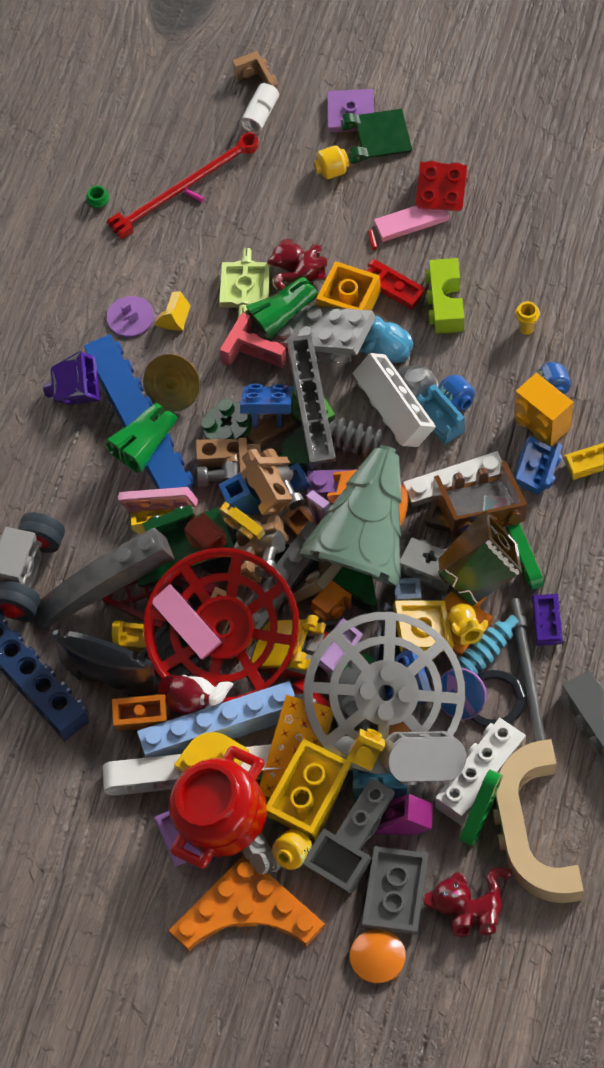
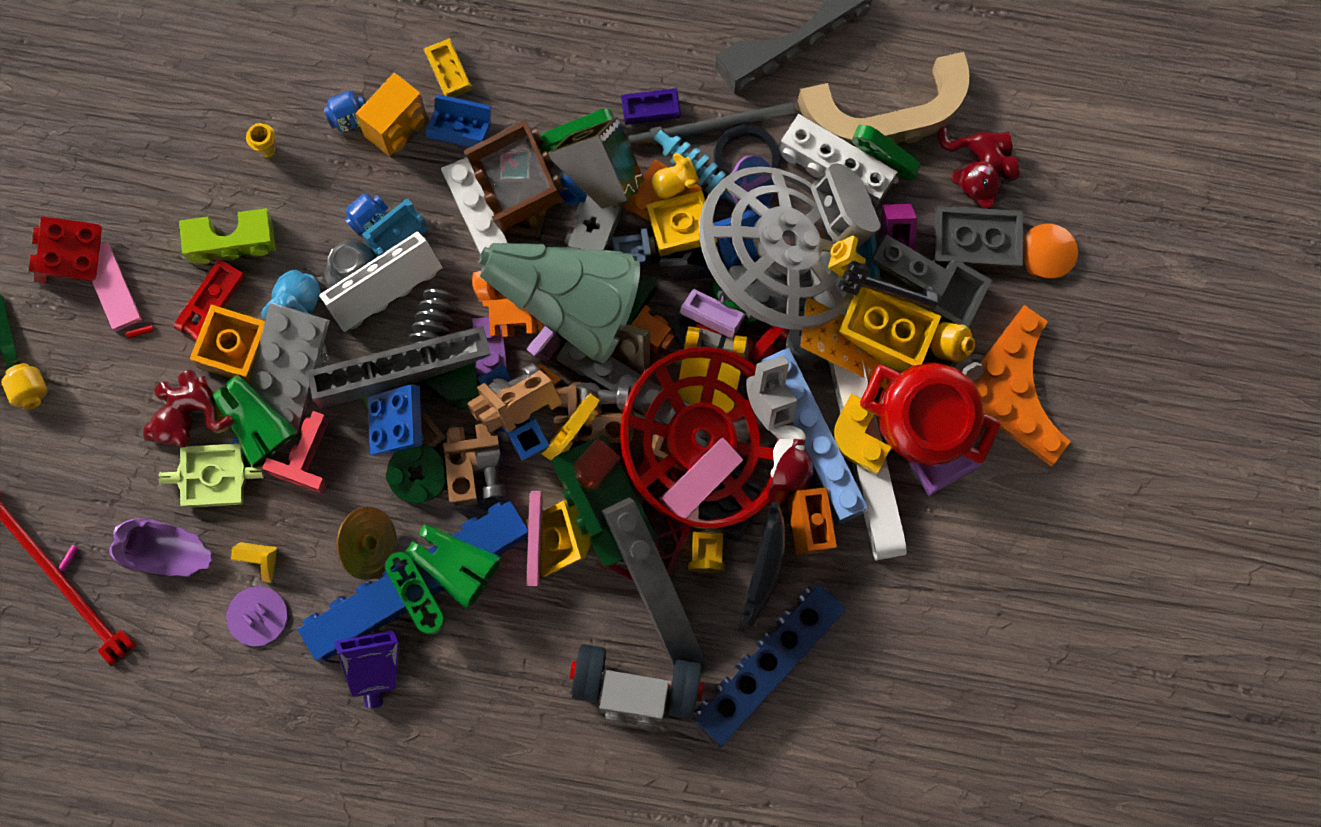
camera: 105 degrees left, 15 degrees up
(97, 192) = (62, 680): green plate -> none
(109, 423) = (411, 569): none -> green beam
(190, 246) = (158, 548): none -> medium lavender hair
(250, 677) = (769, 395): none -> light grey brick
(345, 749) = (861, 279): none -> black hinge

